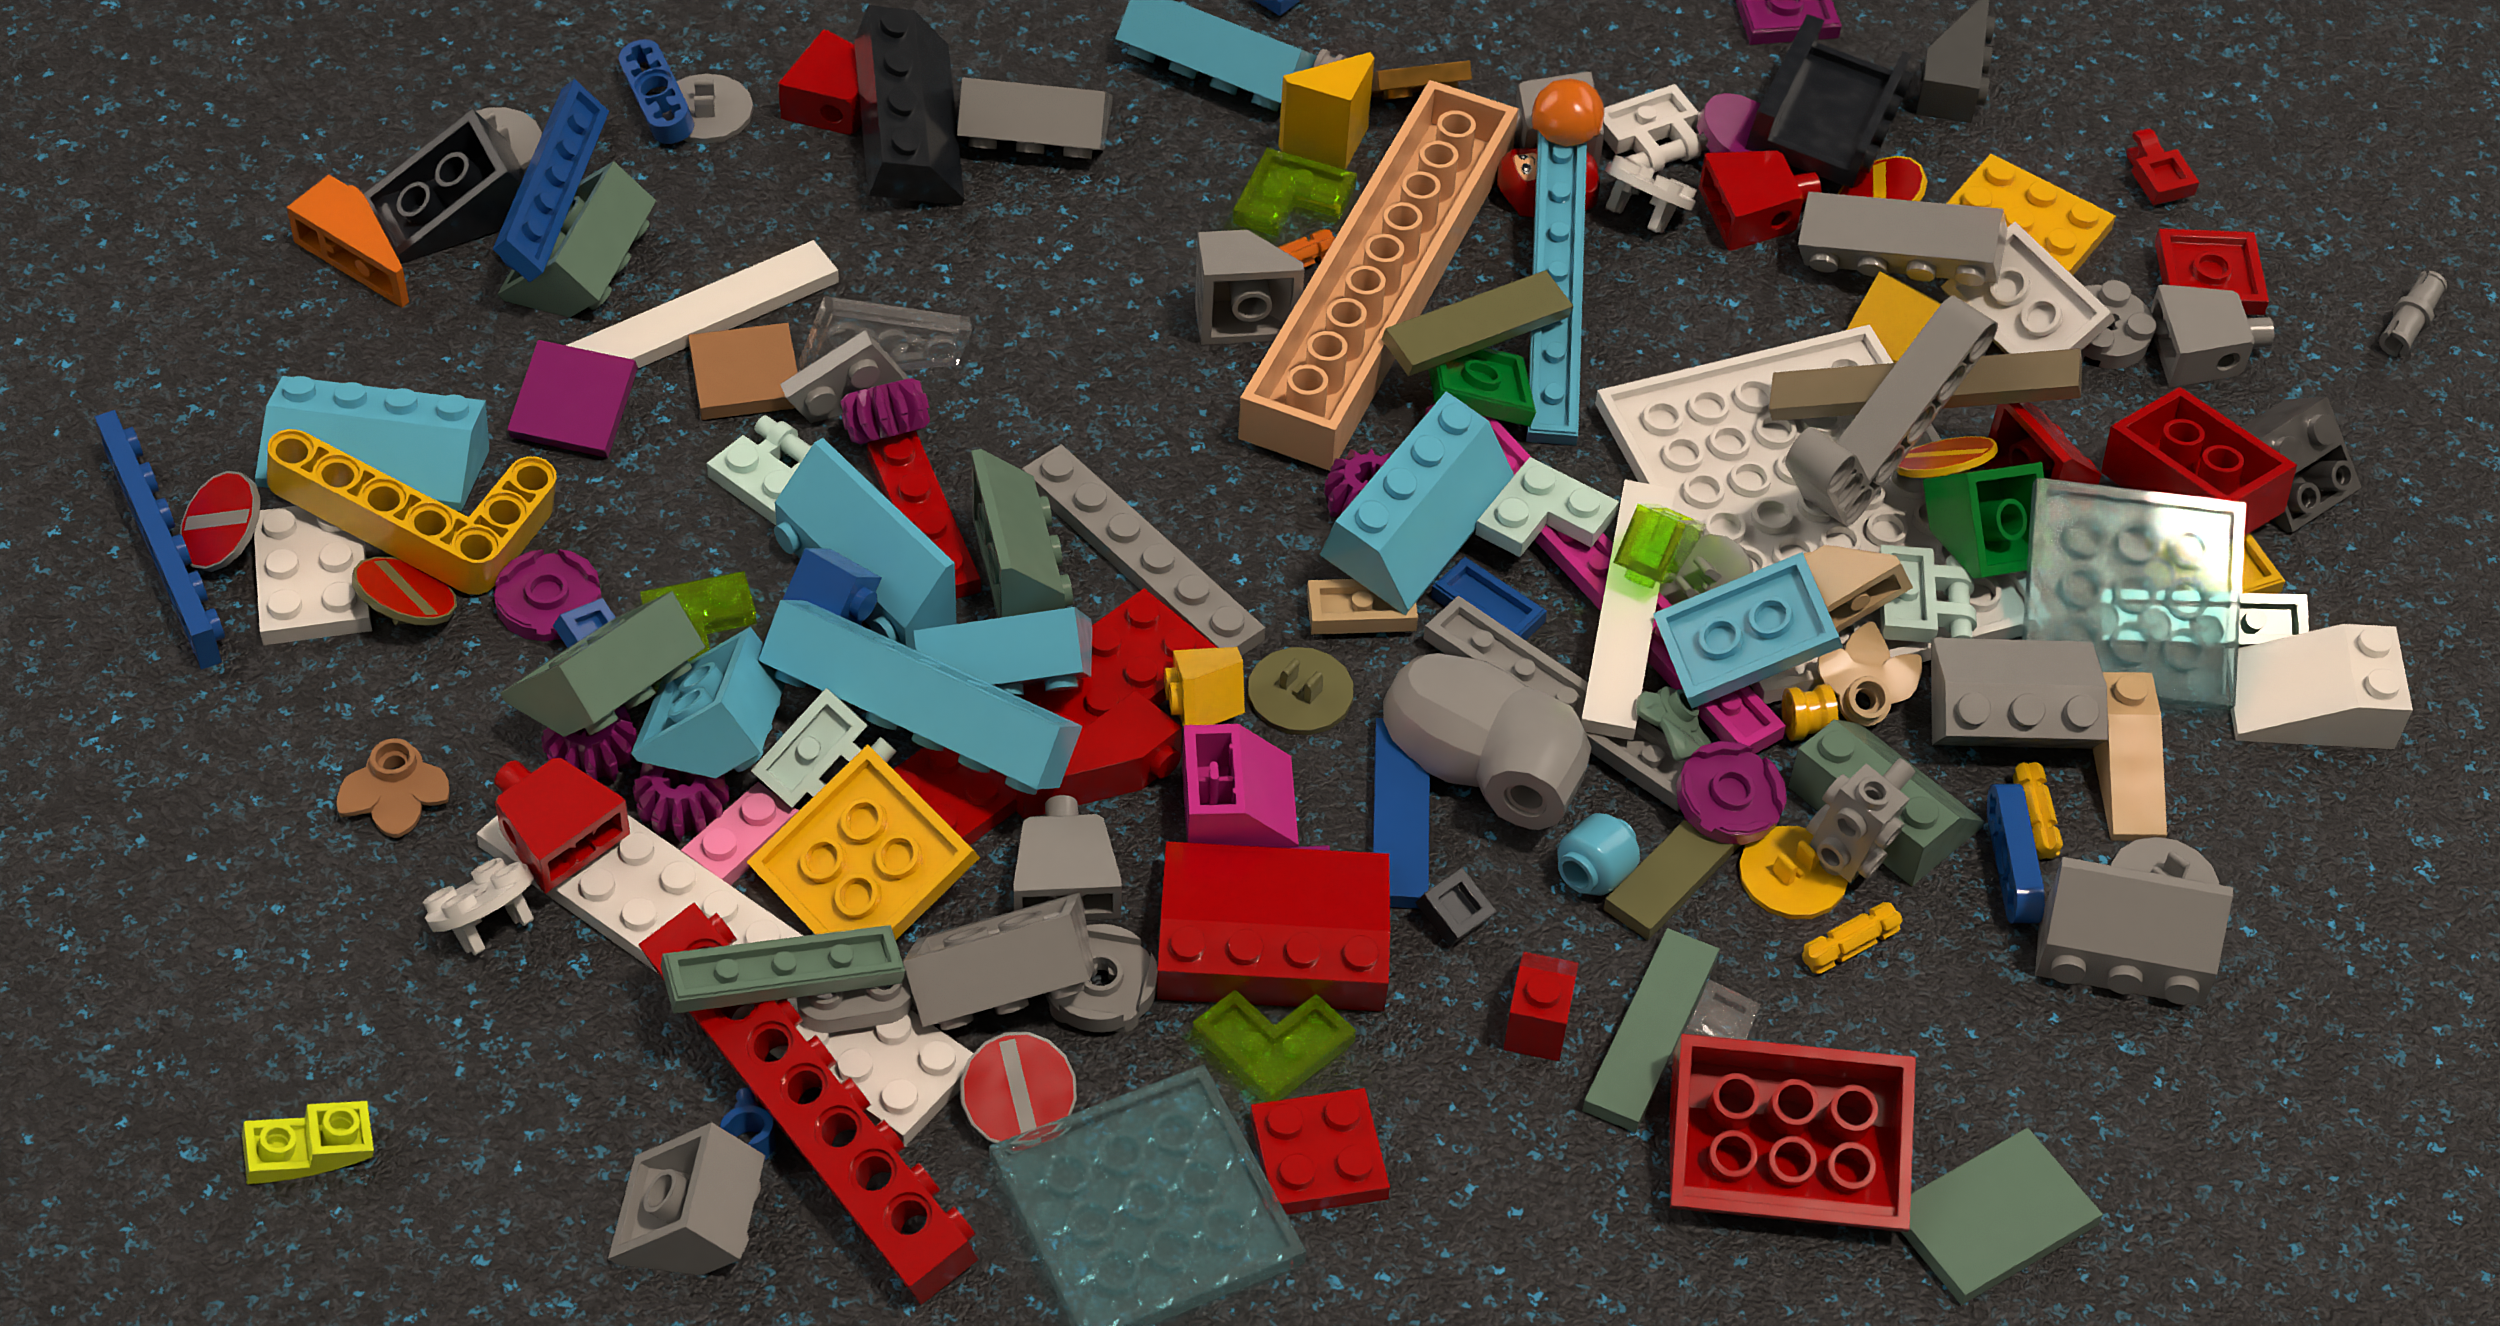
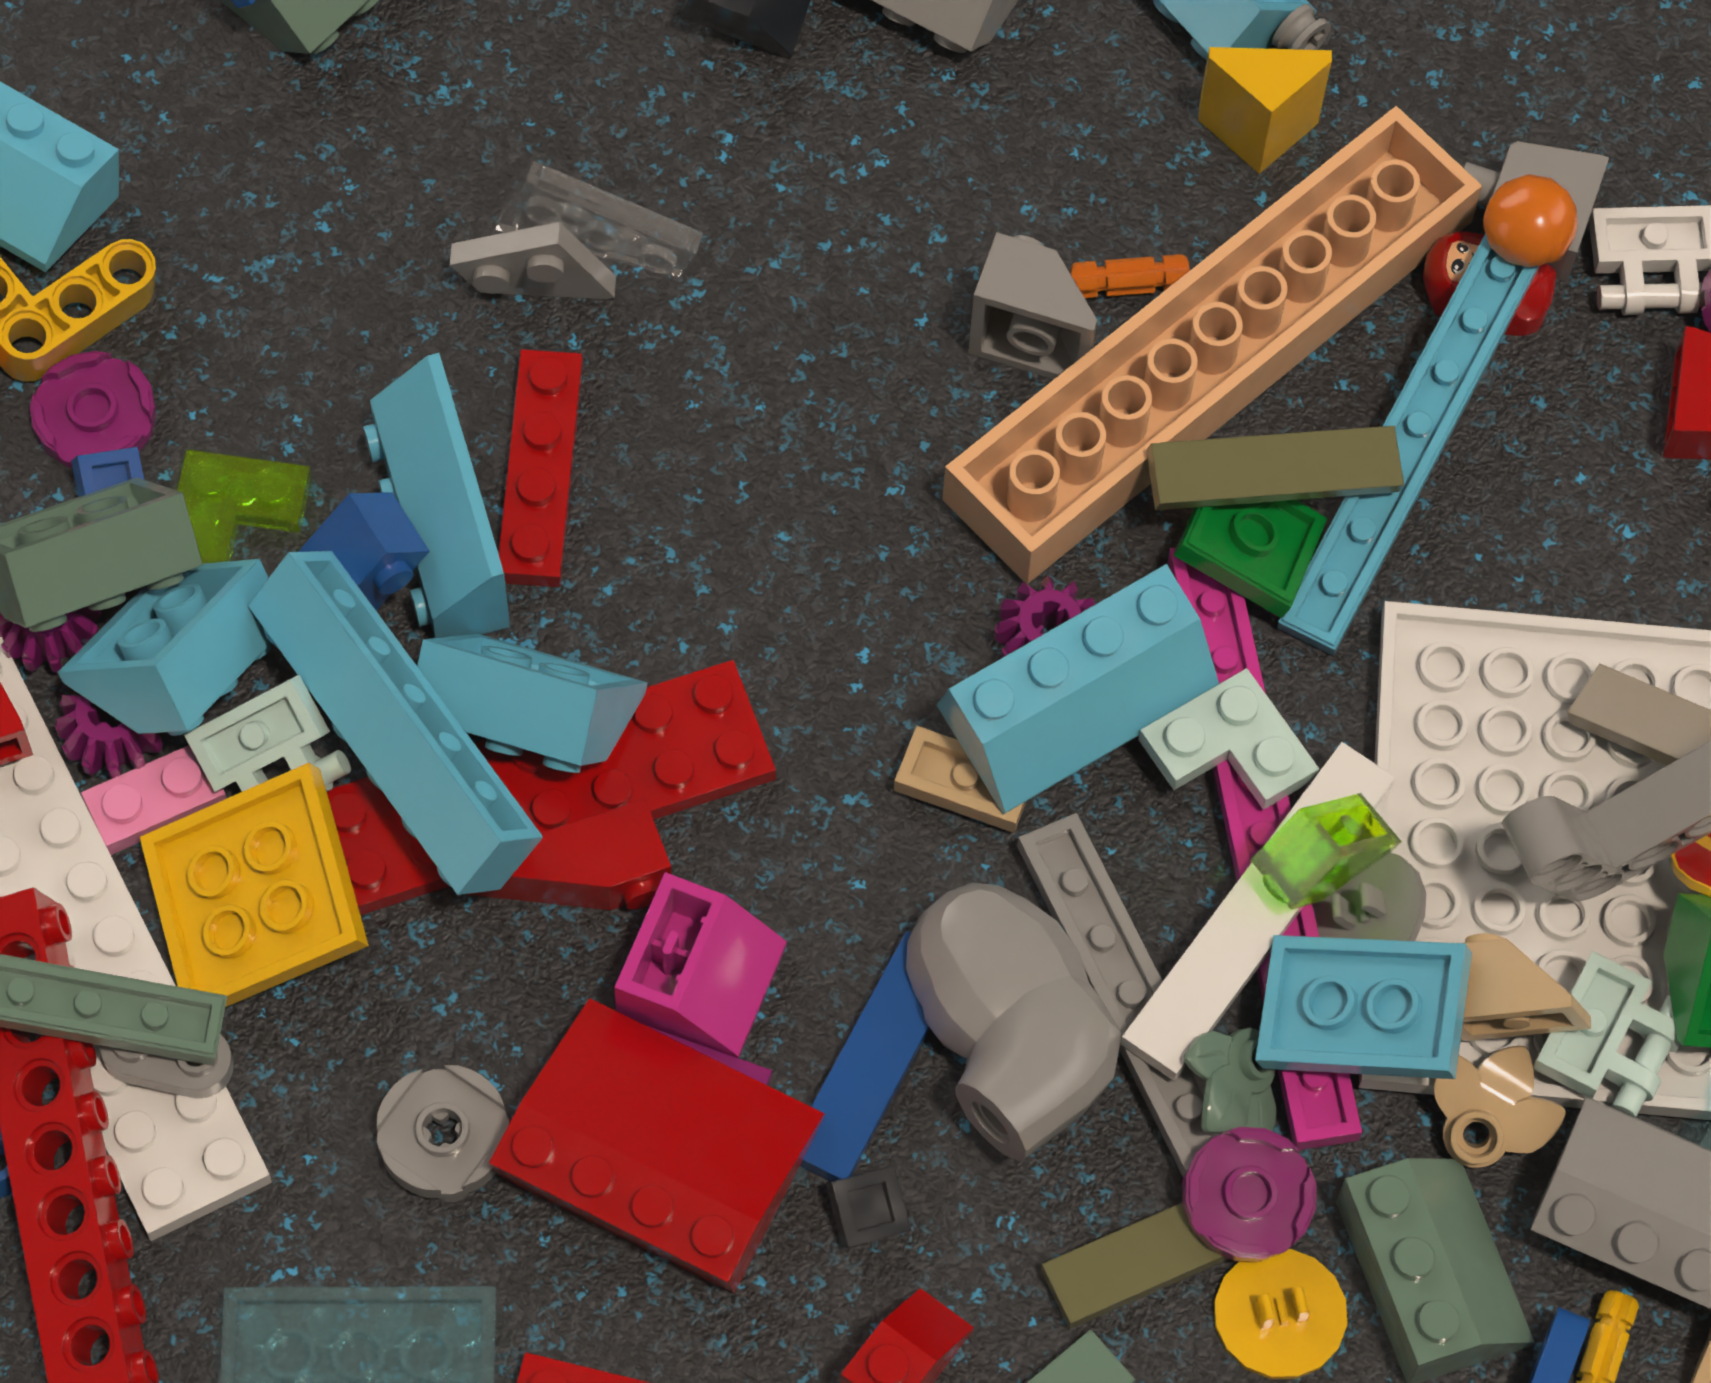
camera: 25 degrees right, 15 degrees up
(572, 398) = (227, 170): magenta tile -> none
(716, 306) = (415, 106): white tile -> none
(742, 370) = (434, 196): medium nougat tile -> none
(754, 470) = (383, 335): light aqua plate -> none
(885, 411) = (551, 323): magenta gear -> none
(1000, 962) = (336, 1074): light grey slope -> none
(1015, 539) = (612, 557): sand green slope -> none
(1016, 1085) = (285, 1231): red piece -> none
(1066, 857) = (469, 979): light grey torso -> none
(1142, 551) = (758, 612): light grey plate -> none
(1205, 685) = (725, 823): yellow slope -> none
(1269, 1056) = (585, 1306): clear neon green plate -> none
(1288, 181) = (1173, 171): clear neon green plate -> none
(1300, 691) = (847, 856): olive piece -> none
(1405, 81) = (1418, 95): pearl gold plate -> none
(1490, 596) = (1117, 828): blue tile -> none
(1598, 854) = (1057, 1209): medium azure head -> none
(1666, 193) = (1598, 344): white plate -> none
(1808, 711) = (1401, 1124): yellow wheel -> none
(1860, 820) = (1361, 1301): light grey brick -> none

